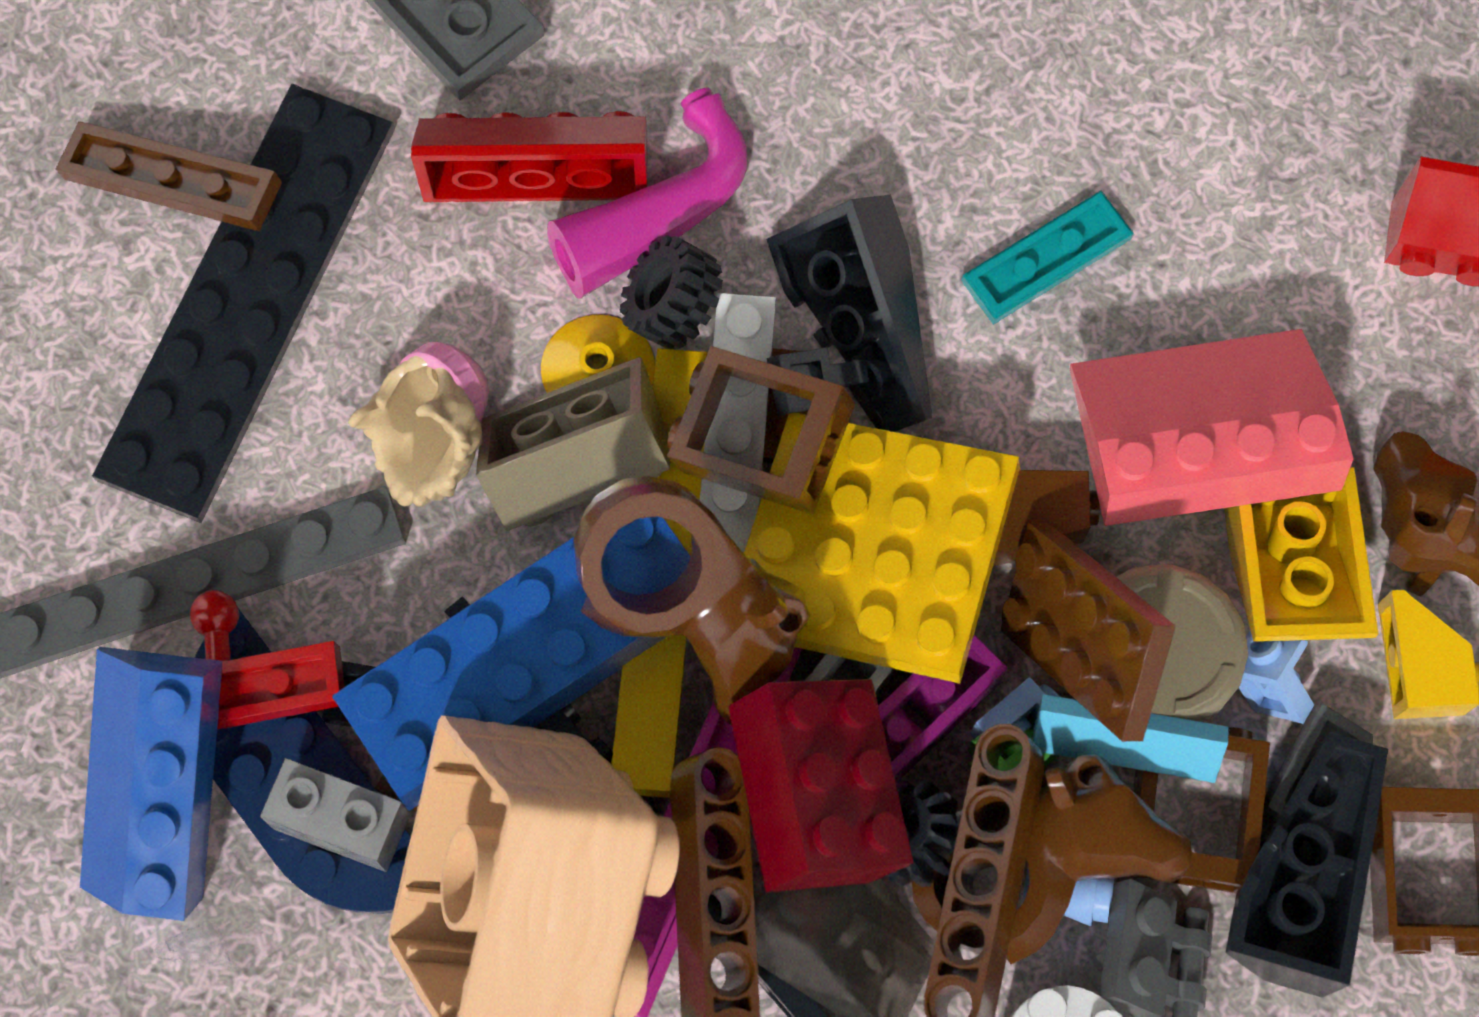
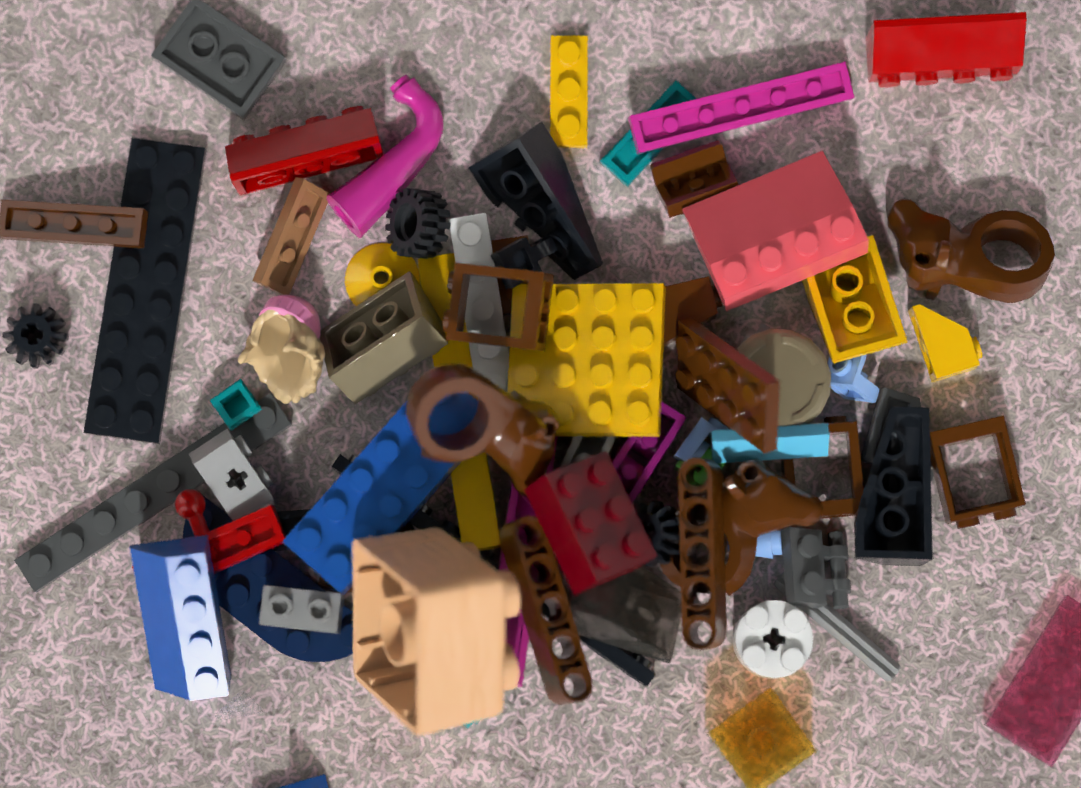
camera: 10 degrees left, 10 degrees up
(73, 338) = (24, 347): none -> black gear
(266, 562) = (219, 457): none -> light grey brick
(328, 488) = (235, 404): none -> teal slope
(481, 271) = (291, 237): none -> medium nougat plate
(940, 170) = (569, 91): none -> yellow plate
(1093, 325) = (692, 177): none -> reddish brown bracket
(1189, 247) = (740, 107): none -> dark pink plate

